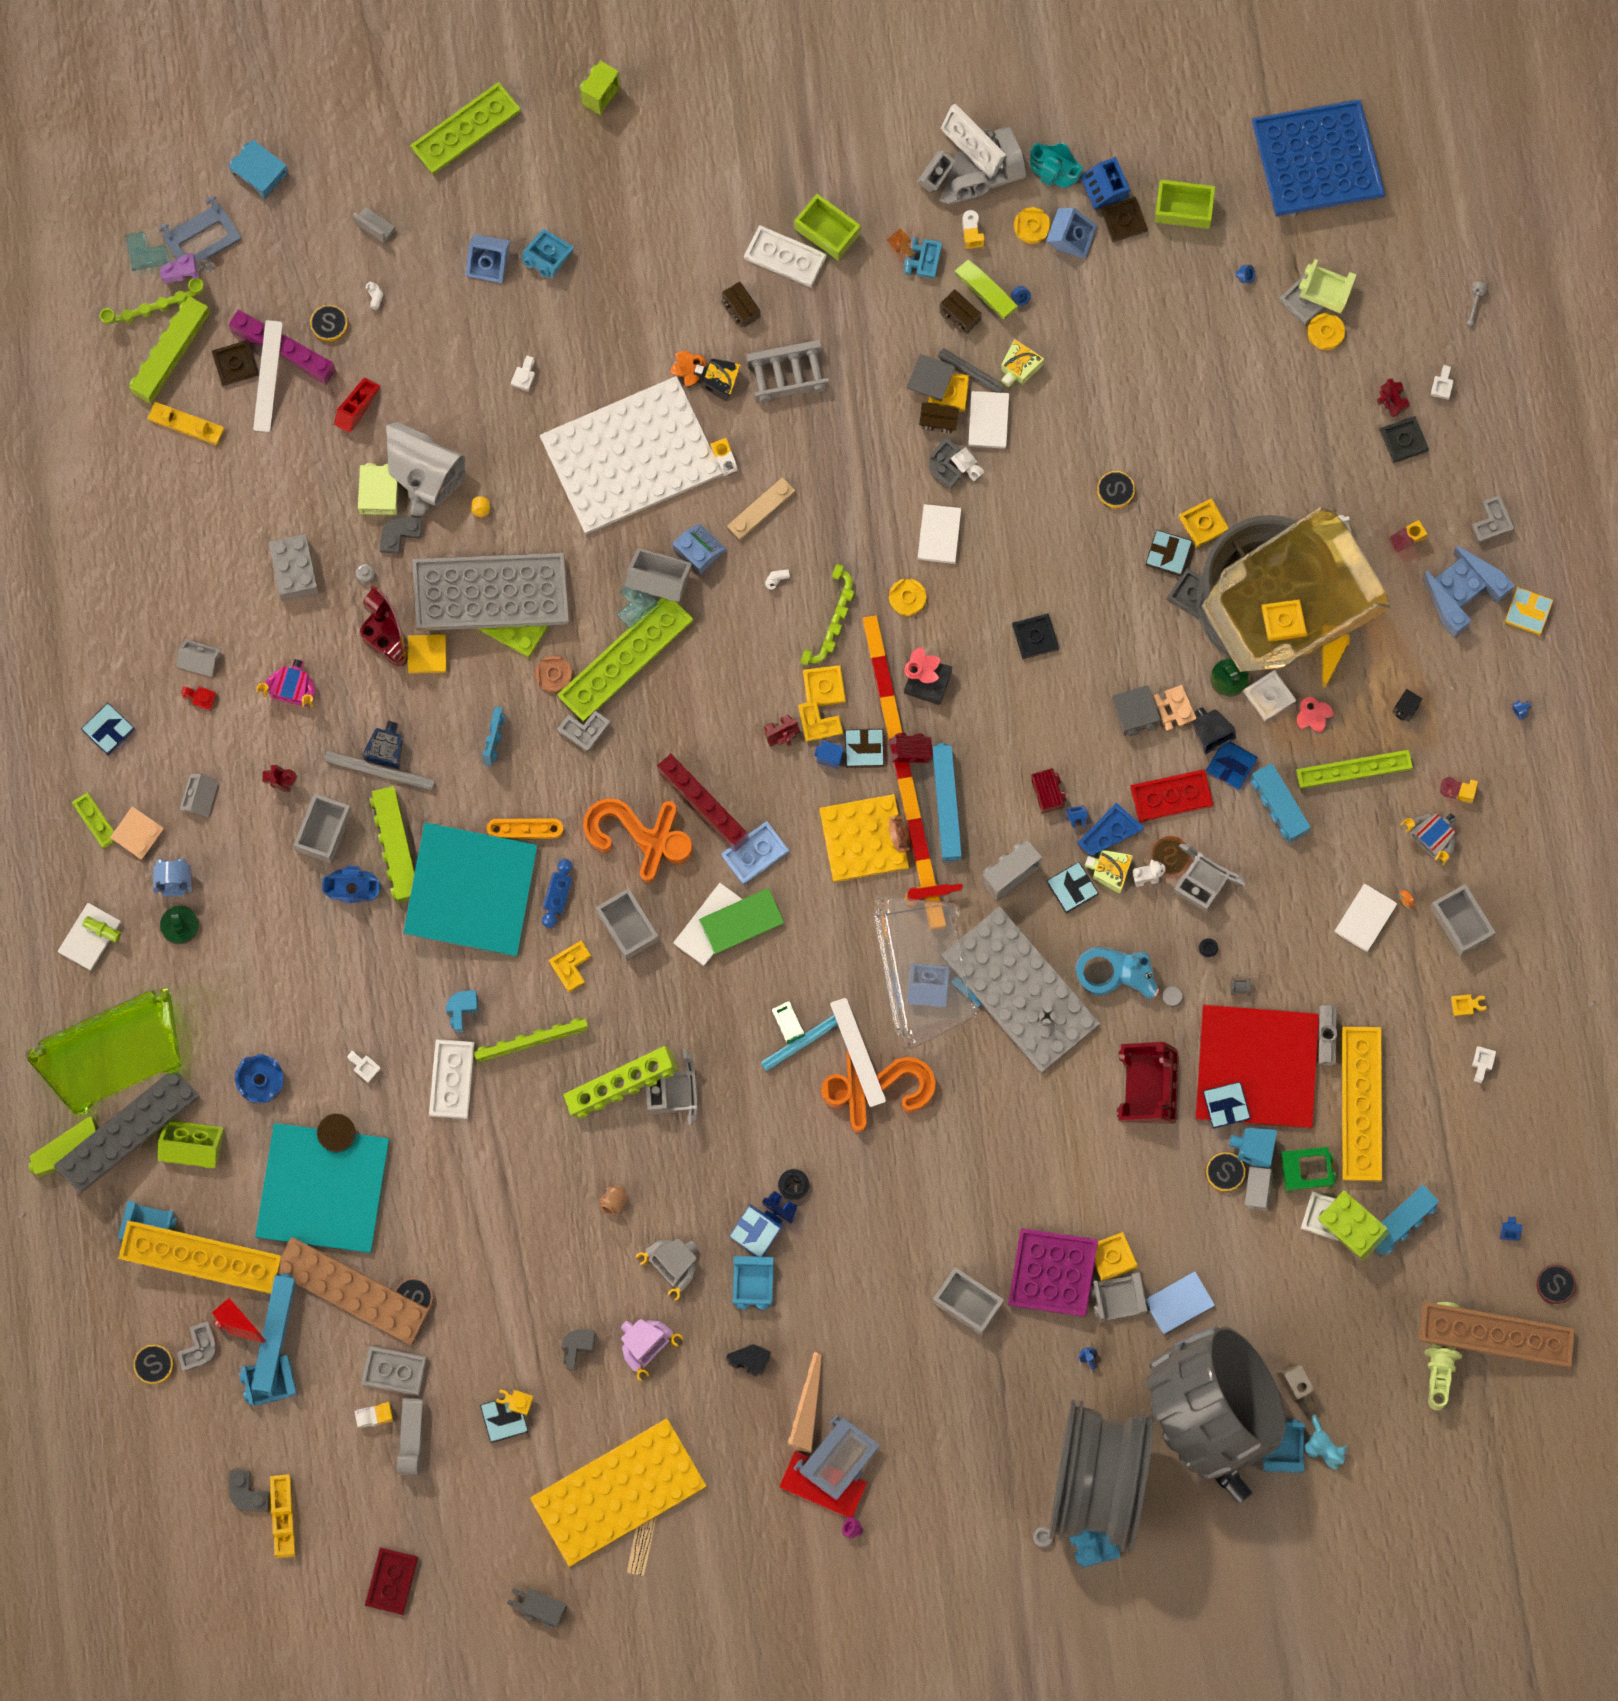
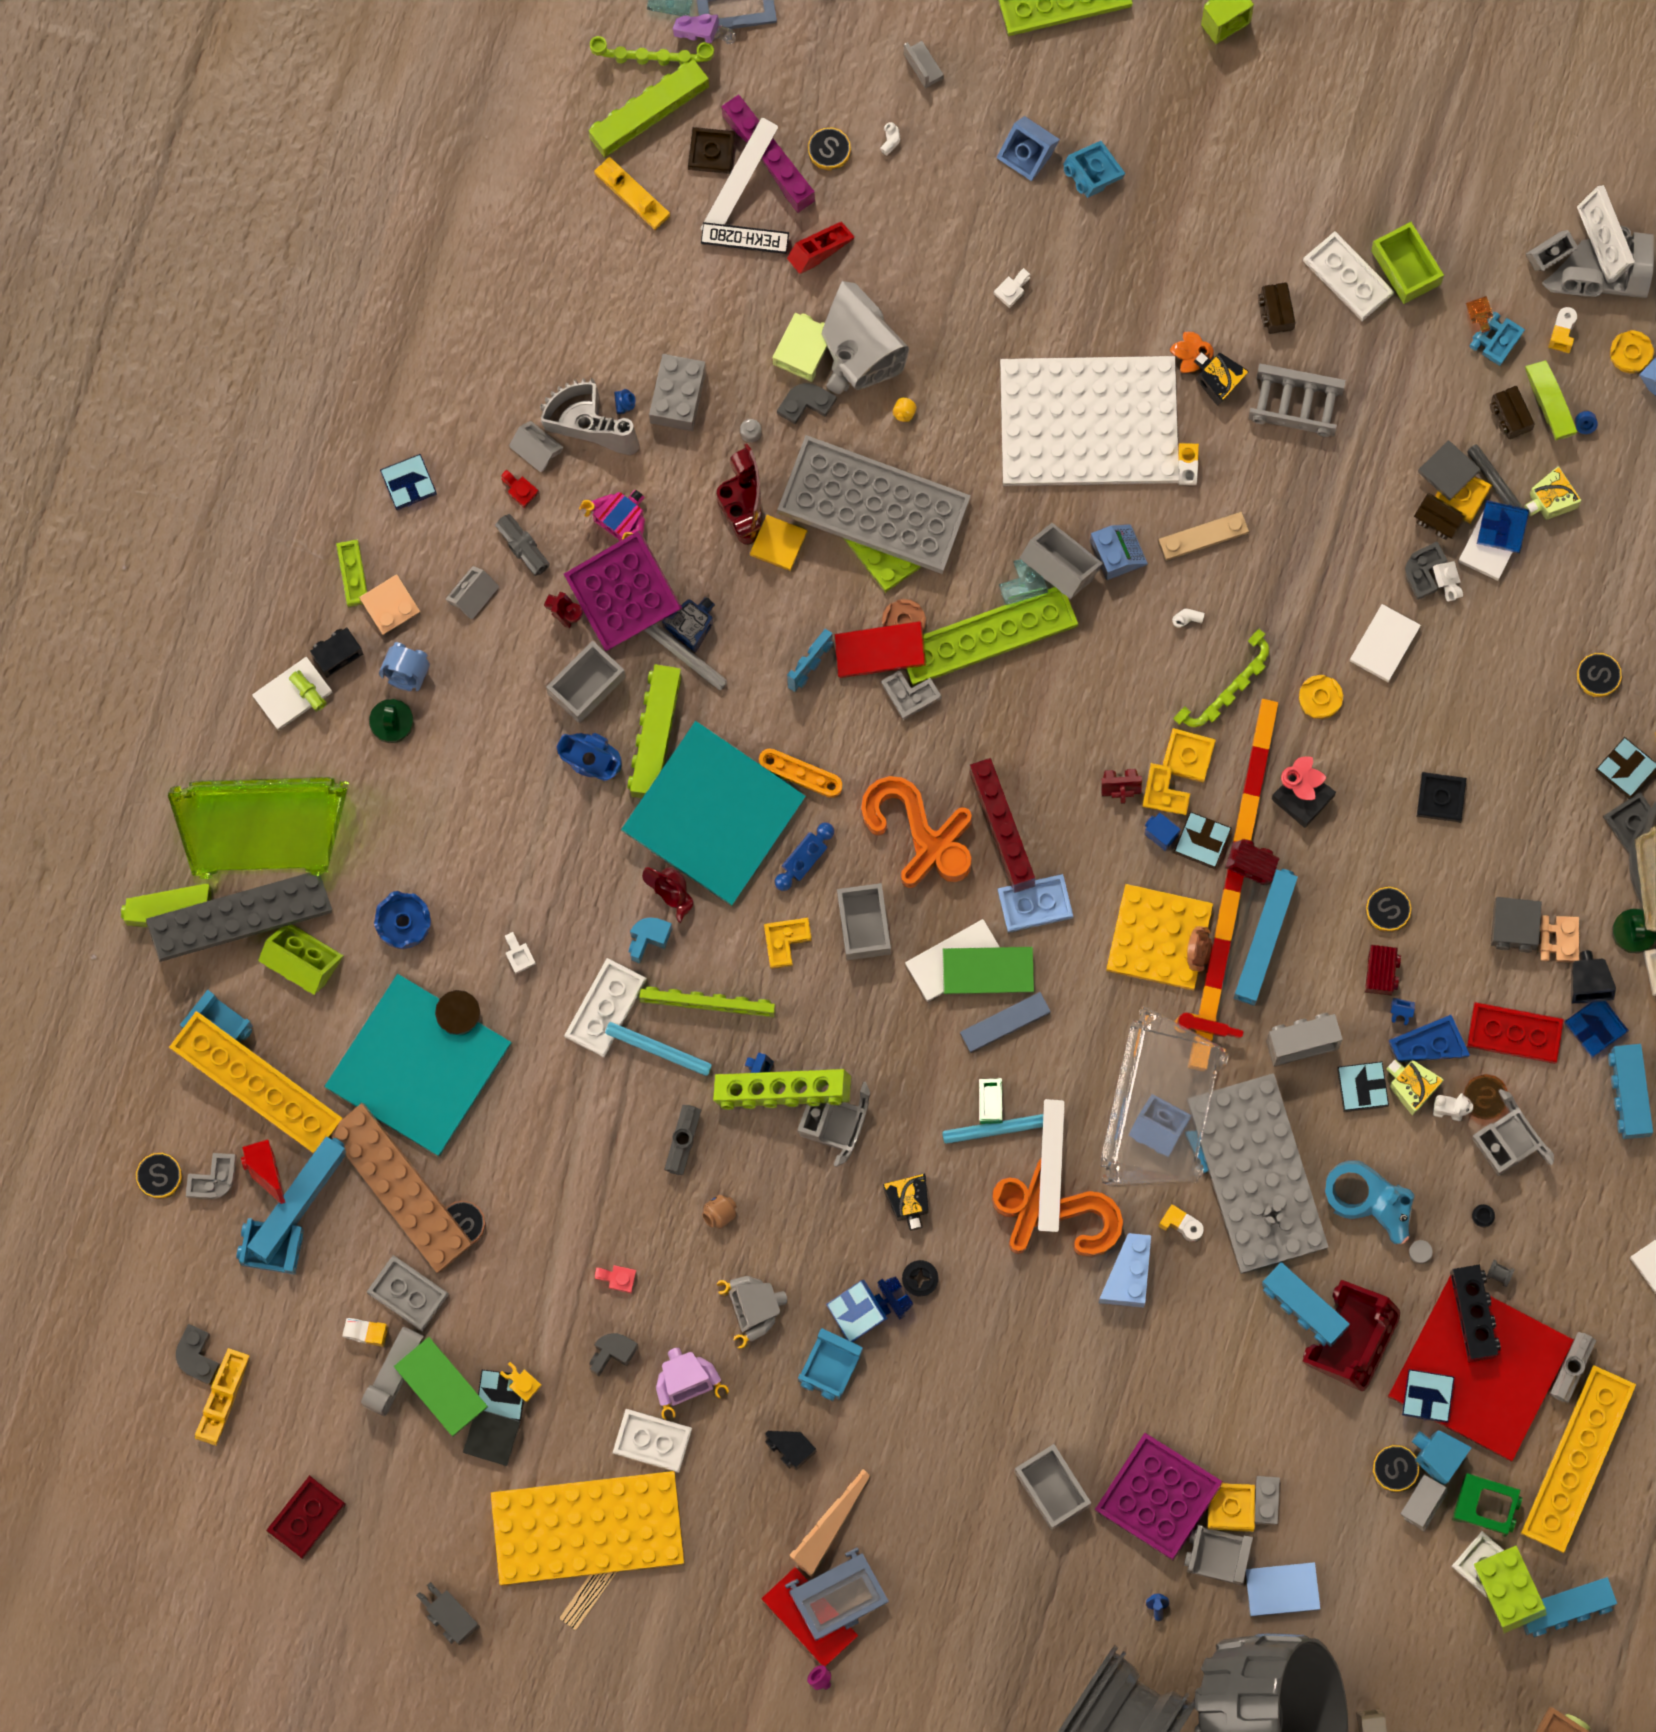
camera: 25 degrees right, 0 degrees up
(110, 888) = (336, 652): none -> black brick
(222, 740) = (522, 544): none -> dark grey piece
(253, 592) = (624, 401): none -> blue plate
(253, 622) = (609, 433): none -> light grey arm
(293, 422) = (745, 238): none -> tile
(320, 743) = (622, 590): none -> magenta plate
(454, 1432) = (440, 1386): none -> bright green tile
(462, 962) = (671, 887): none -> dark red hair
(508, 1093) = (658, 1048): none -> medium azure axle
(511, 1454) = (492, 1437): none -> pearl dark grey tile
(545, 704) = (880, 649): none -> red tile
(557, 1286) = (620, 1278): none -> coral plate
(561, 1168) = (679, 1153): none -> dark grey piece
(595, 1071) = (760, 1064): none -> blue tile
(639, 1402) = (652, 1440): none -> white tile
(757, 1127) = (908, 1199): none -> torso
(772, 956) = (1005, 1022): none -> sand blue tile
(956, 1111) = (1130, 1273): none -> light blue wedge
(980, 1053) = (1183, 1223): none -> leg
(991, 404) = (1502, 526): none -> clear blue tile
(1032, 741) = (1388, 909): none -> black tile
(1101, 1075) = (1305, 1304): none -> dark azure brick
(1137, 1239) = (1267, 1500): none -> light grey plate
(1247, 1053) = (1475, 1349): none -> black brick

